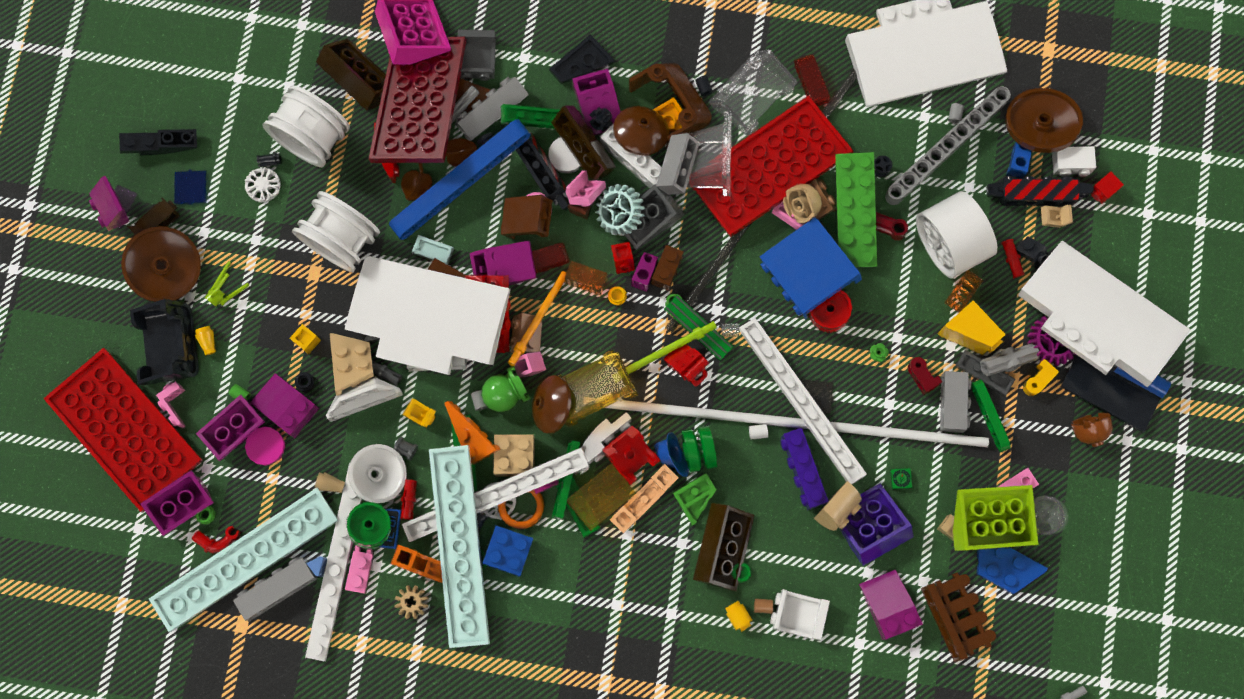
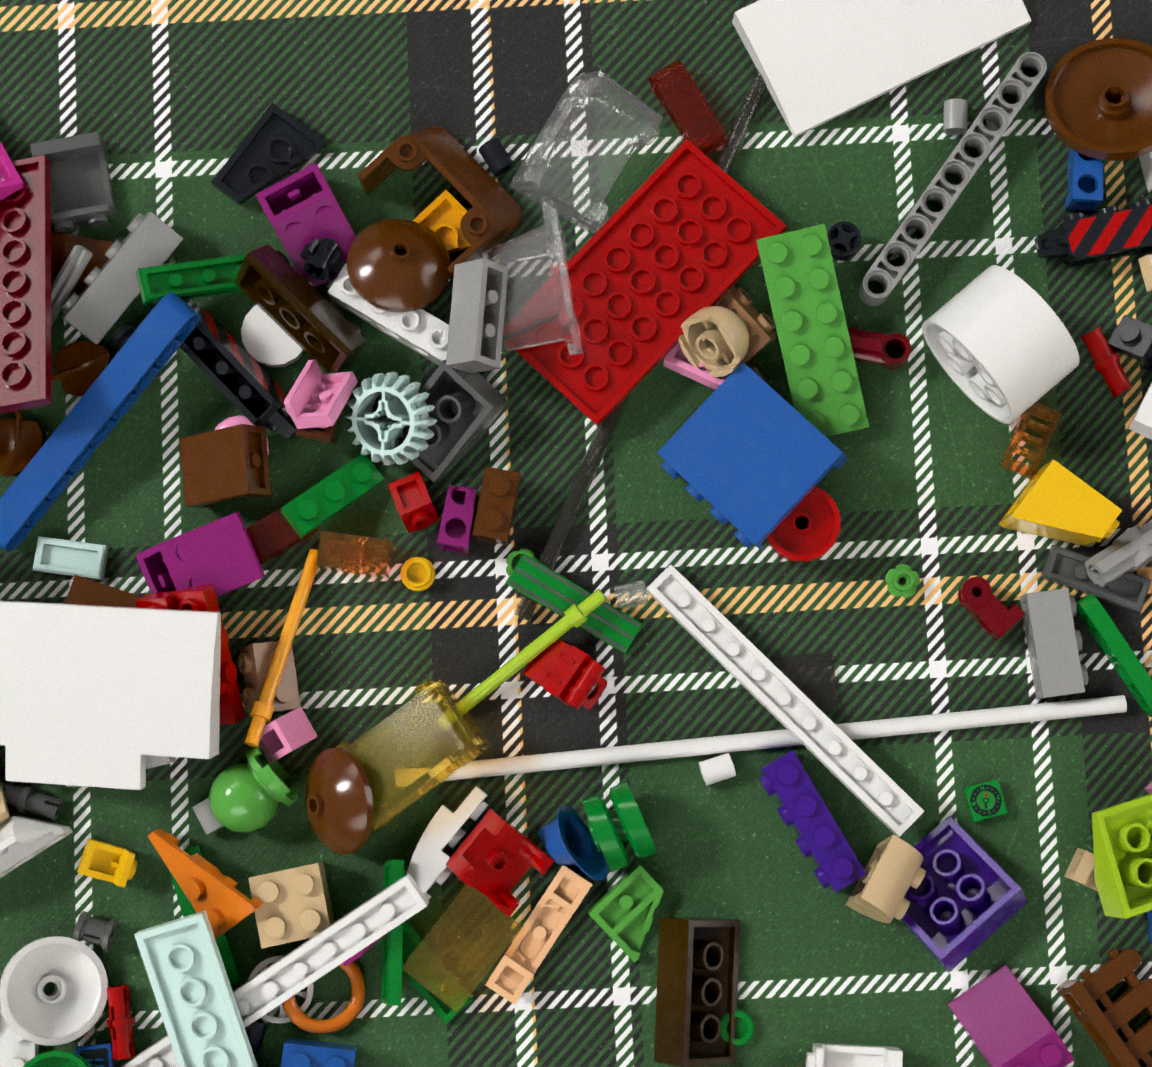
camera: 10 degrees left, 5 degrees up
(580, 244) = (332, 495): none -> green plate

